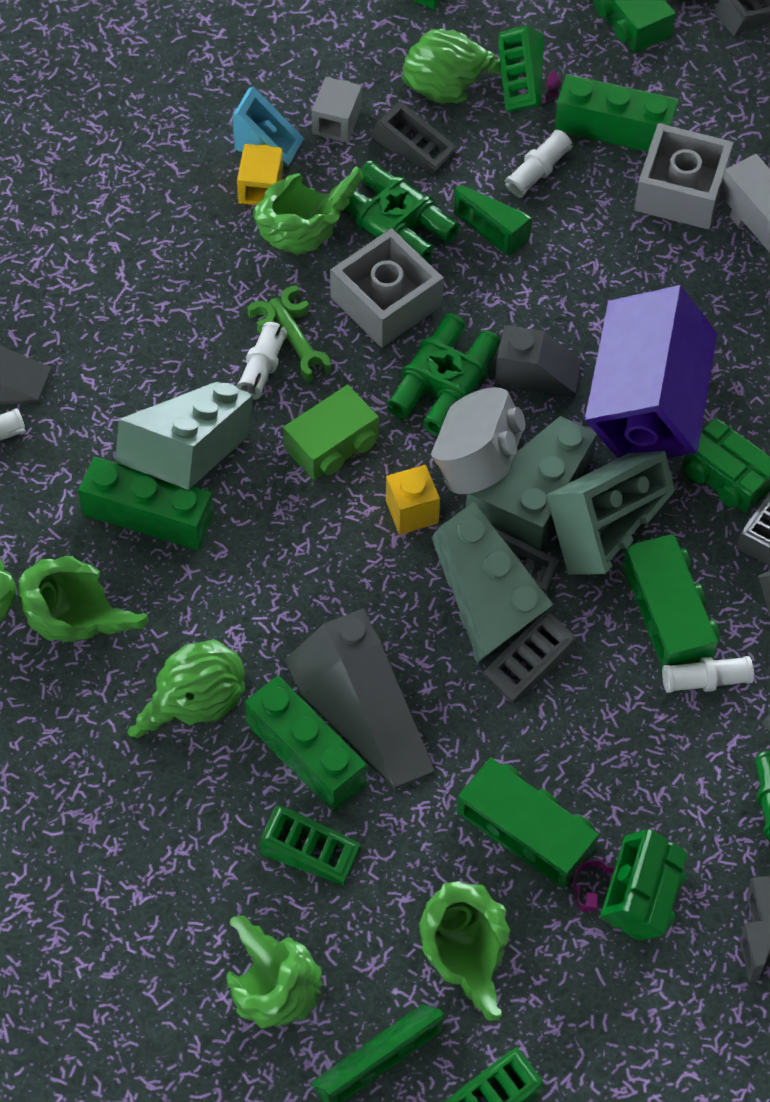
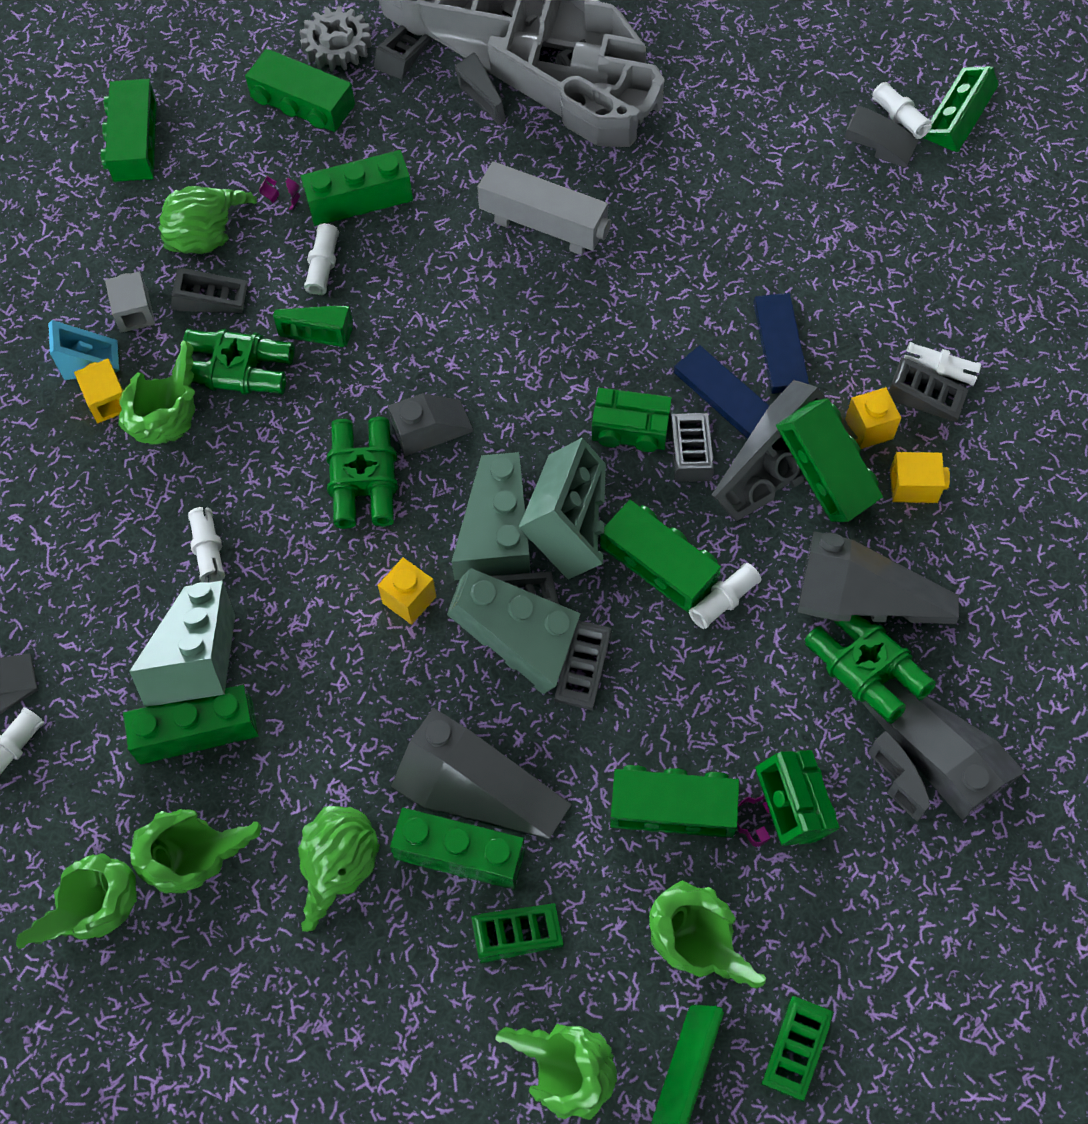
camera: 30 degrees left, 5 degrees up
(283, 312) = (196, 495): bright green bar -> none
(331, 433) = (304, 573): bright green brick -> none
(386, 287) = (270, 427): light grey brick -> none
(478, 440) = (431, 512): light grey brick -> none
(514, 45) = (242, 175): green slope -> none
(652, 374) = (530, 381): dark purple brick -> none
(683, 176) = (443, 208): light grey brick -> none

